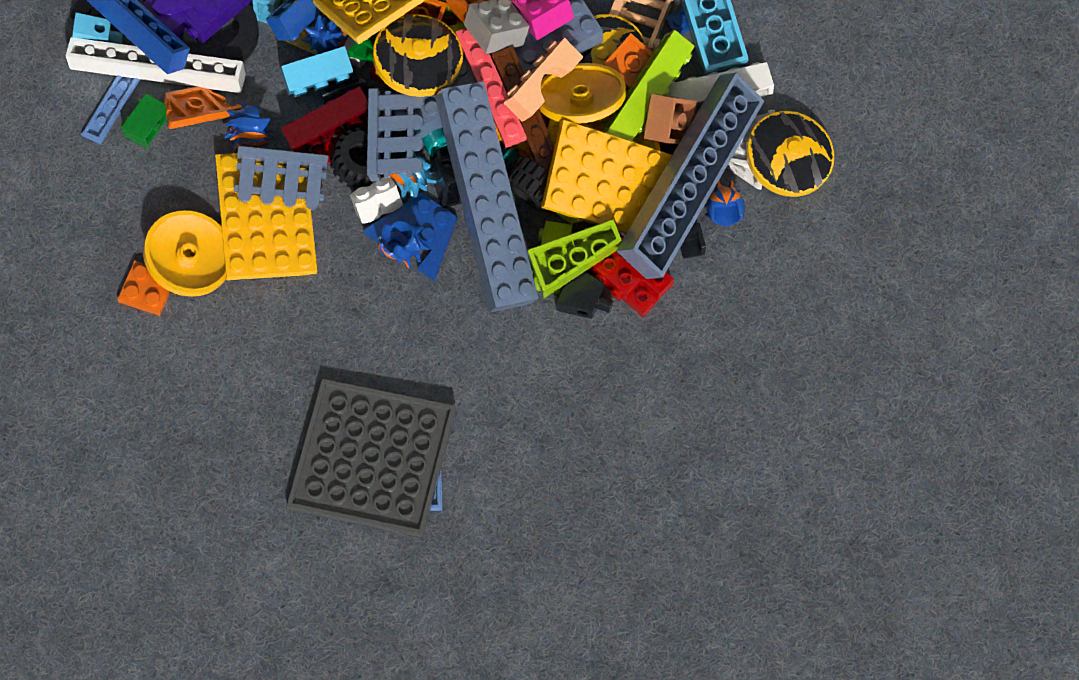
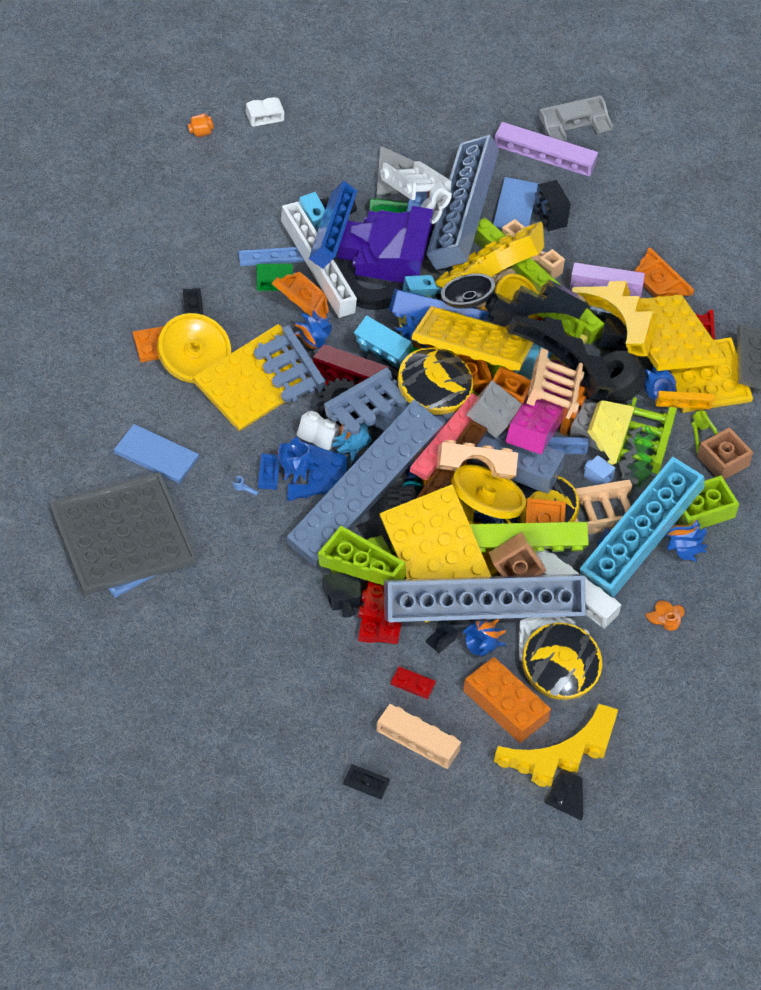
camera: 50 degrees right, 15 degrees down
(123, 220) = (193, 301): none -> black plate
(291, 368) = (156, 453): none -> medium blue tile
(390, 276) = (268, 472): none -> blue plate
(391, 310) = (241, 486): none -> medium blue hand
(723, 298) = (413, 682): none -> red plate
(789, 329) = (418, 736): none -> light nougat brick
(792, 31) = (667, 615): none -> orange plate
(801, 228) = (507, 700): none -> orange brick
(807, 406) = (366, 781): none -> black plate
(895, 215) = (567, 755): none -> yellow arch
(930, 242) = (568, 795): none -> black wing

